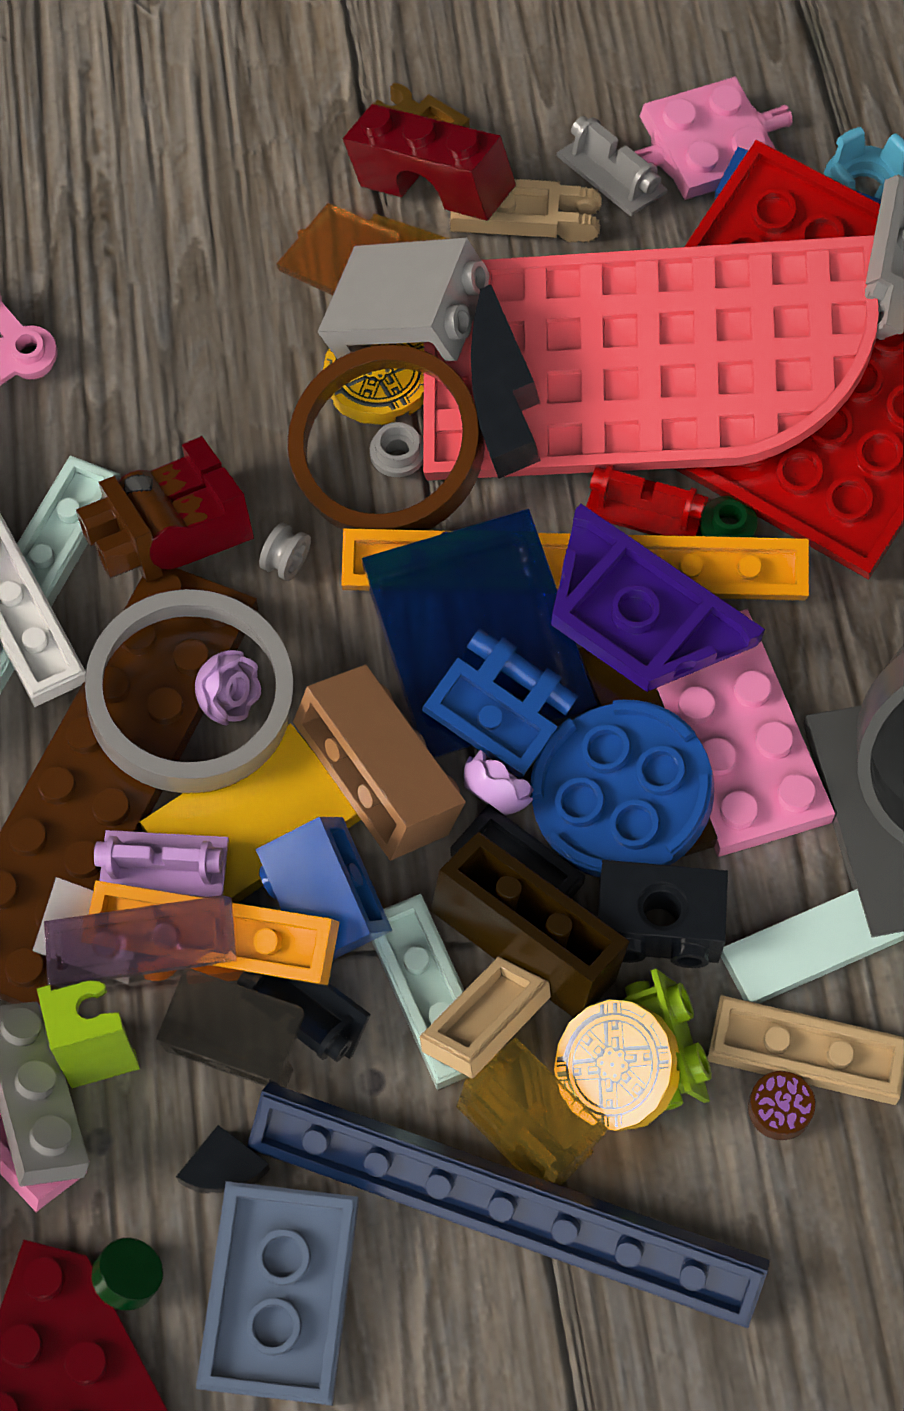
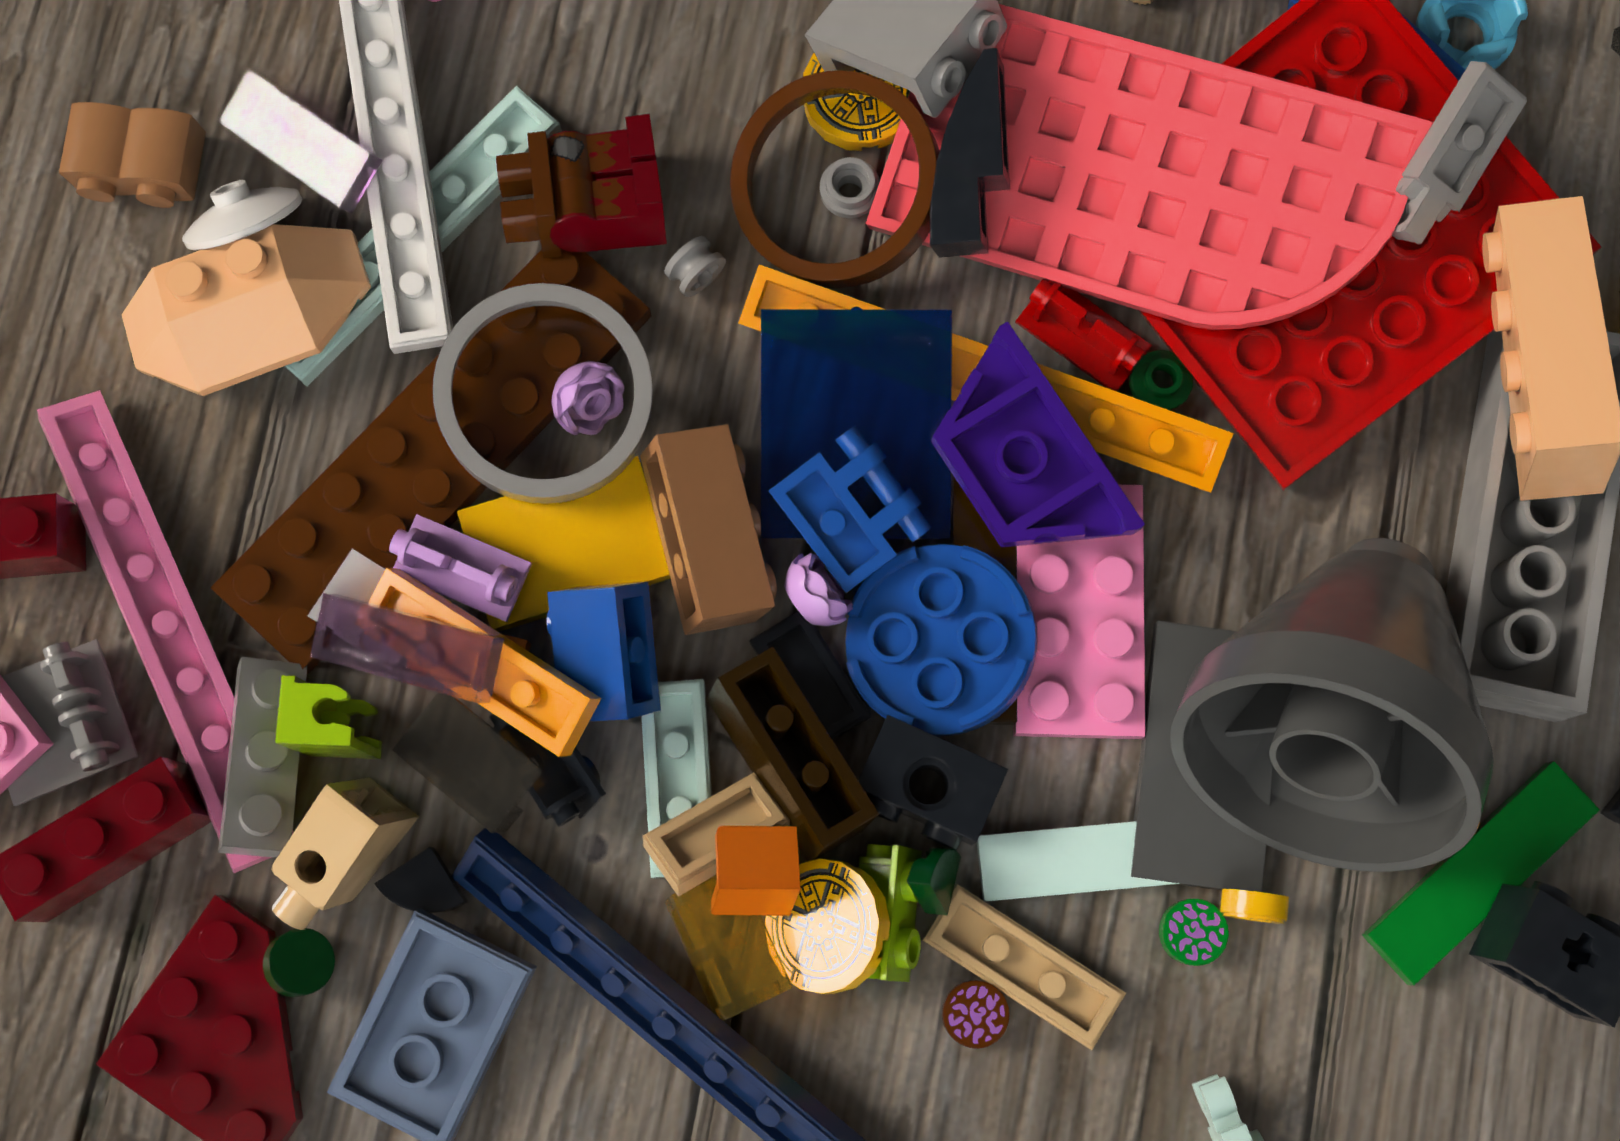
camera: 20 degrees right, 15 degrees up
(129, 1122) = (338, 848): none -> tan torso
(539, 1029) = (756, 870): none -> orange panel
(699, 995) = (934, 879): none -> dark green tile

